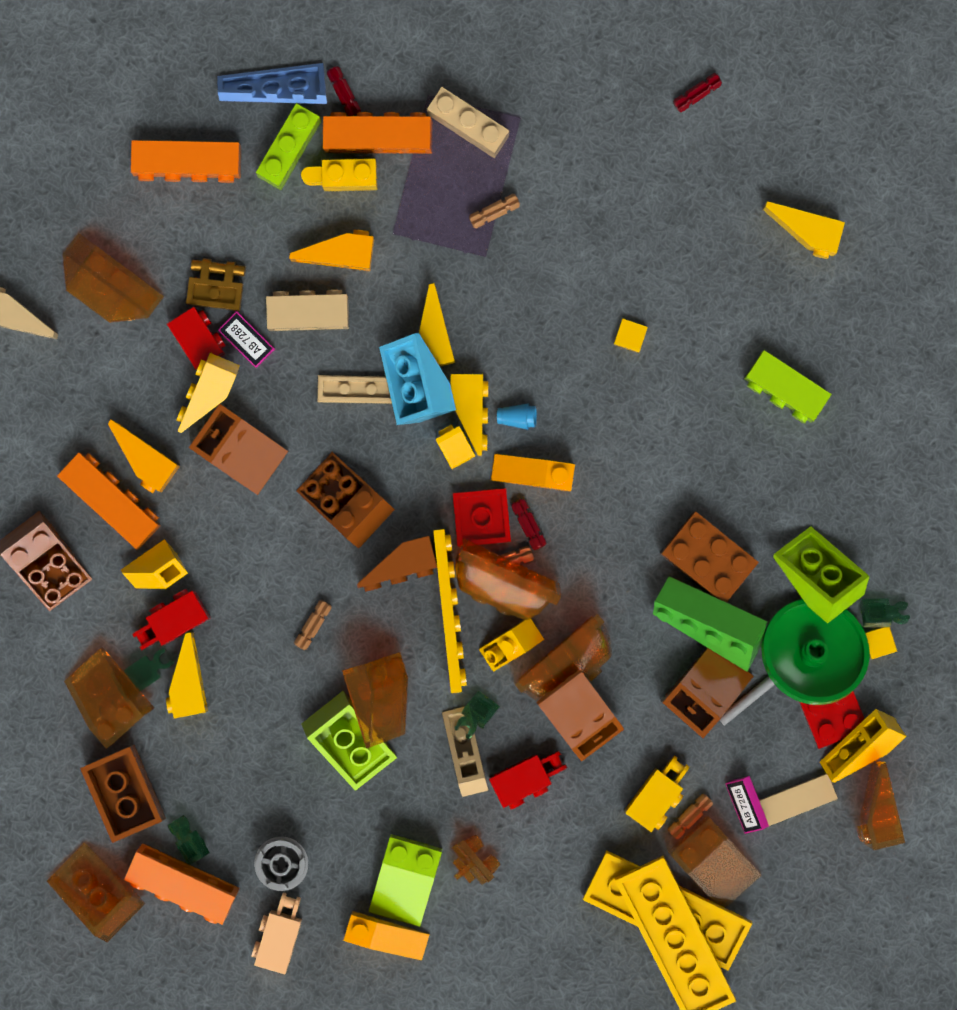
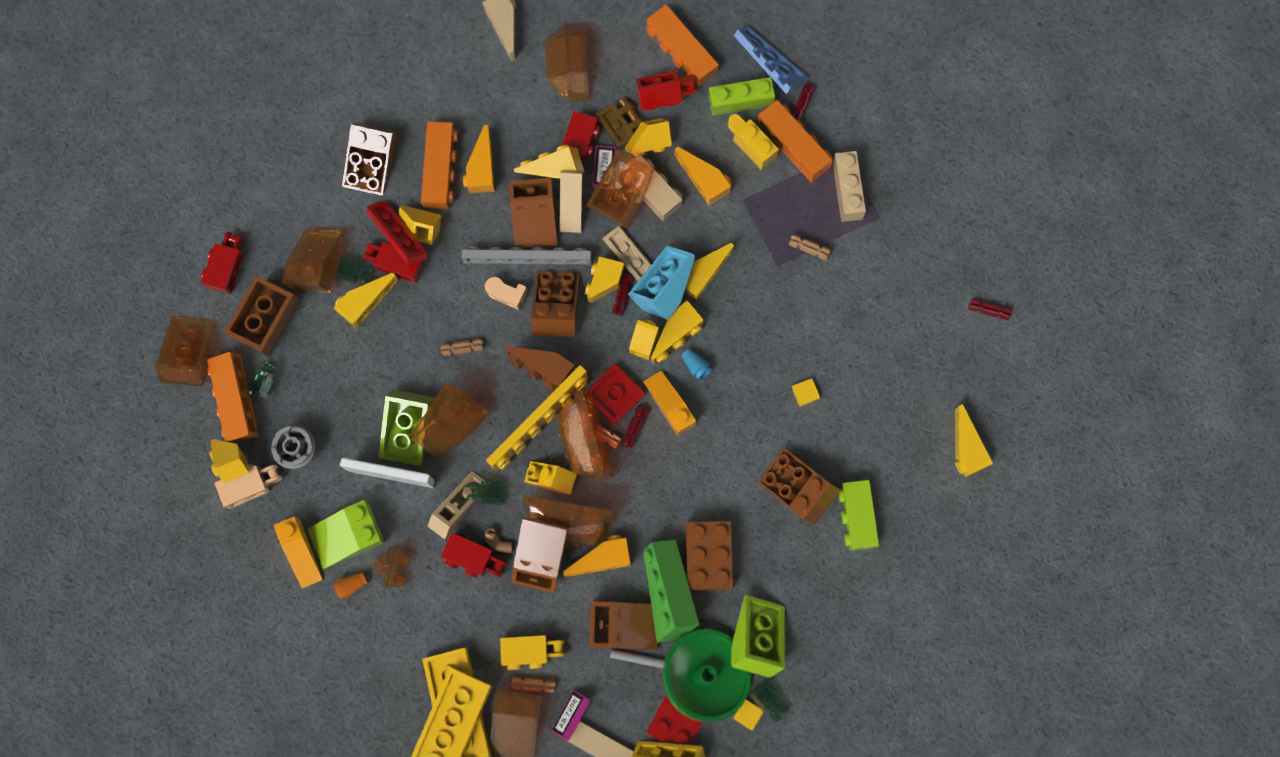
camera: 50 degrees right, 10 degrees down
(35, 790) = (223, 264): none -> red brick
(147, 597) = (396, 232): none -> red plate
(218, 216) = (664, 89): none -> red brick
(244, 934) = (228, 460): none -> yellow slope
(255, 272) = (650, 136): none -> yellow slope
(258, 403) = (571, 201): none -> tan tile
(282, 480) = (519, 256): none -> light grey plate
(286, 545) = (504, 293): none -> light nougat leg
(288, 345) = (621, 189): none -> clear orange slope
(362, 432) = (606, 278): none -> yellow slope
(381, 793) = (387, 472): none -> white tile
(389, 428) = (622, 294): none -> dark red axle
(457, 913) = (349, 585): none -> orange cone
(530, 746) = (495, 543): none -> medium nougat arm
(629, 653) = (606, 556): none -> light orange slope
(714, 419) = (799, 486): none -> dark orange slope

